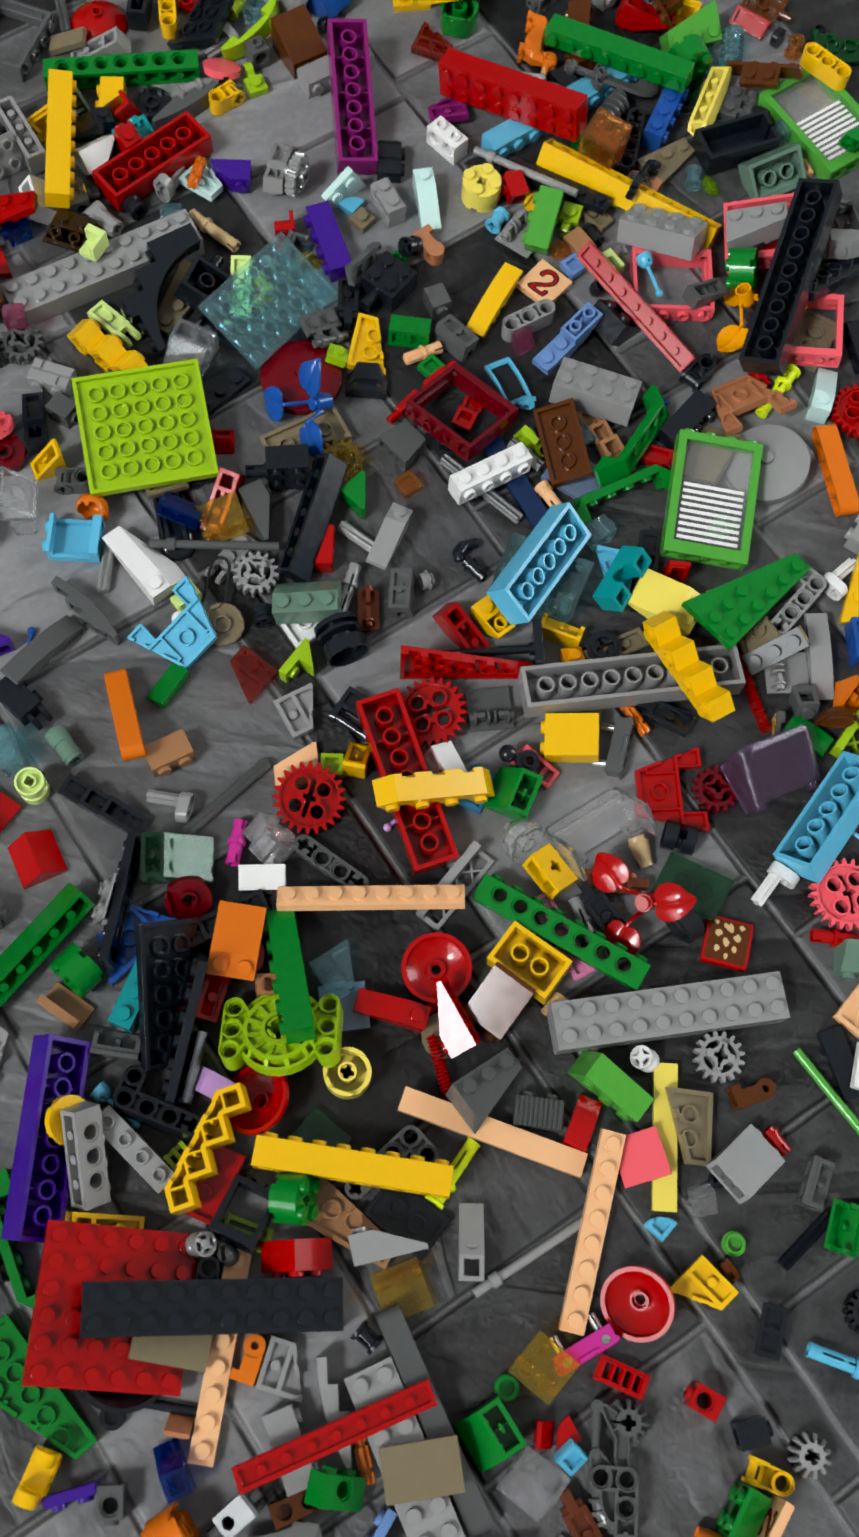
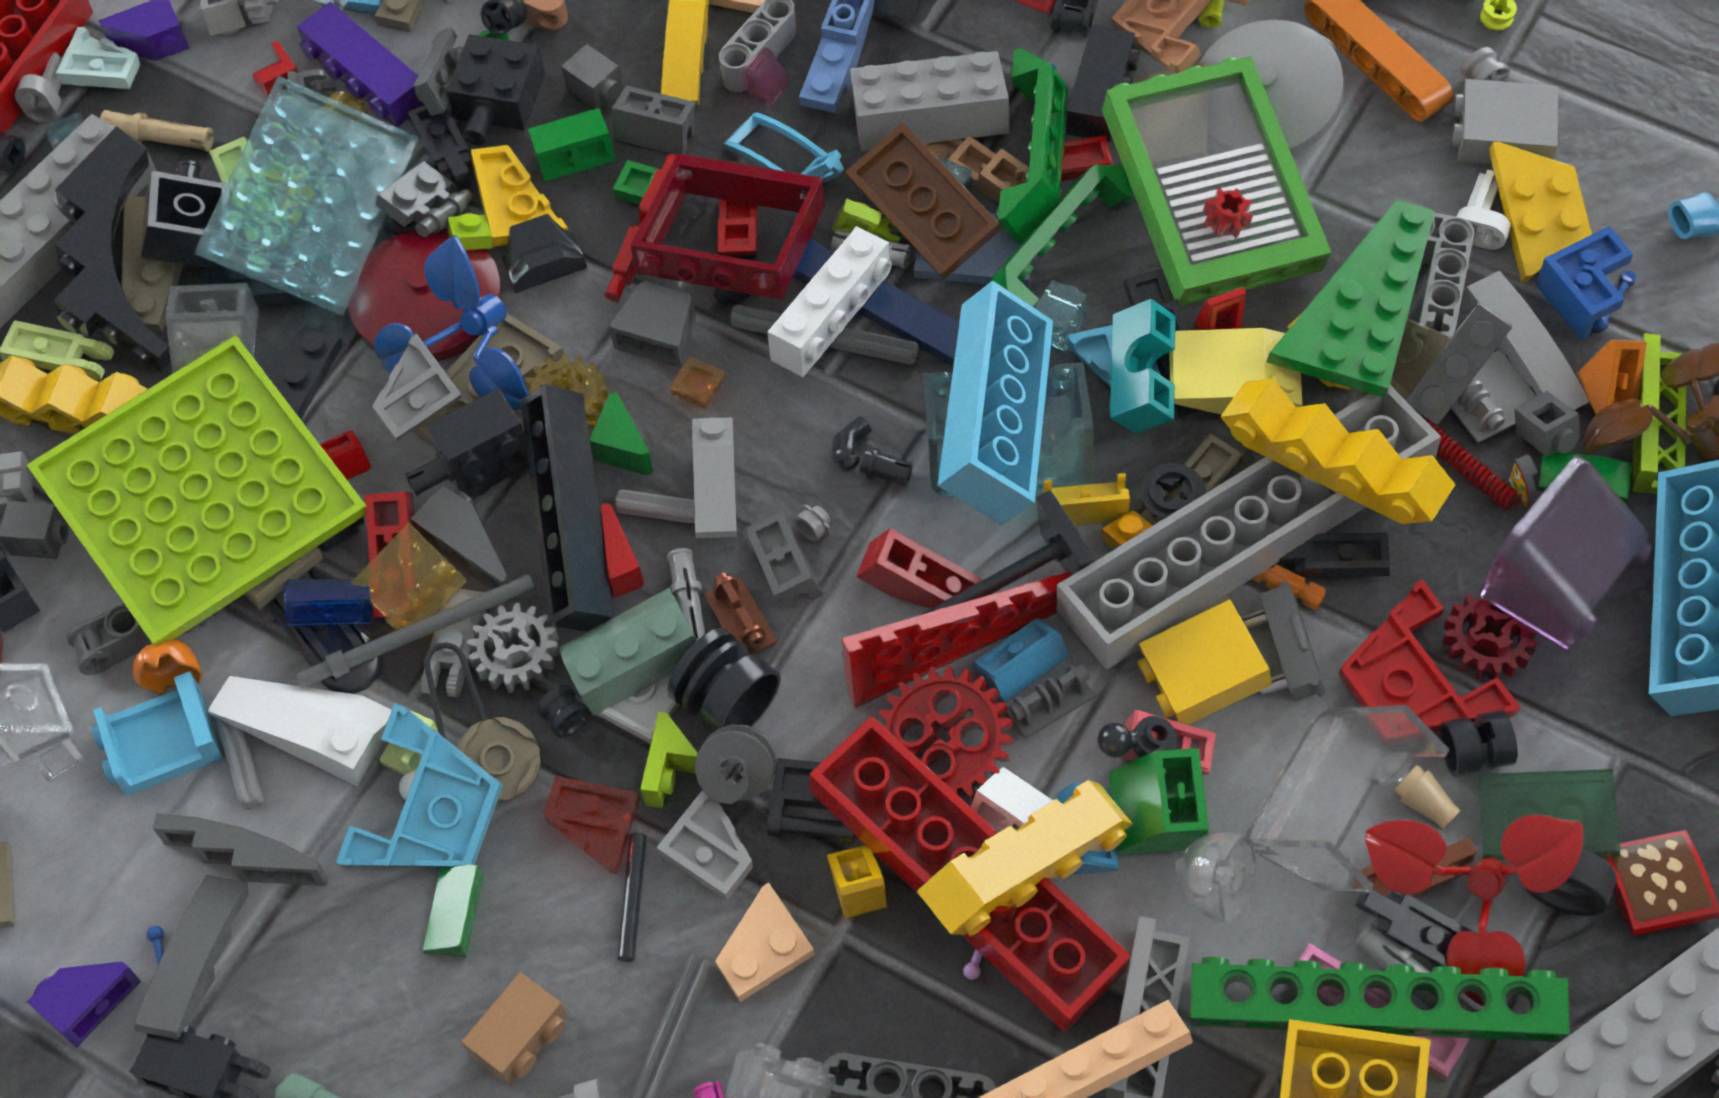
camera: 15 degrees left, 10 degrees down
(47, 461) = (45, 626): yellow slope -> none
(124, 715) = (404, 999): orange beam -> none
(196, 172) = (83, 52): orange axle -> none
(248, 723) = (632, 897): none -> black bar
(269, 426) = (414, 391): none -> light grey wing
(289, 791) = (768, 989): red gear -> none
(327, 679) = (737, 782): none -> dark grey piece
(334, 761) = (817, 909): lime plate -> none
(422, 352) = (610, 167): light nougat axle -> none
(488, 693) = (1022, 658): none -> dark azure slope
(489, 618) = (959, 532): yellow slope -> none
(546, 492) = (933, 291): light nougat pin -> none
(549, 871) = (1297, 908): yellow brick -> none
(701, 524) = (1227, 213): none -> red gear
(776, 873) = (1672, 725): white piece -> none

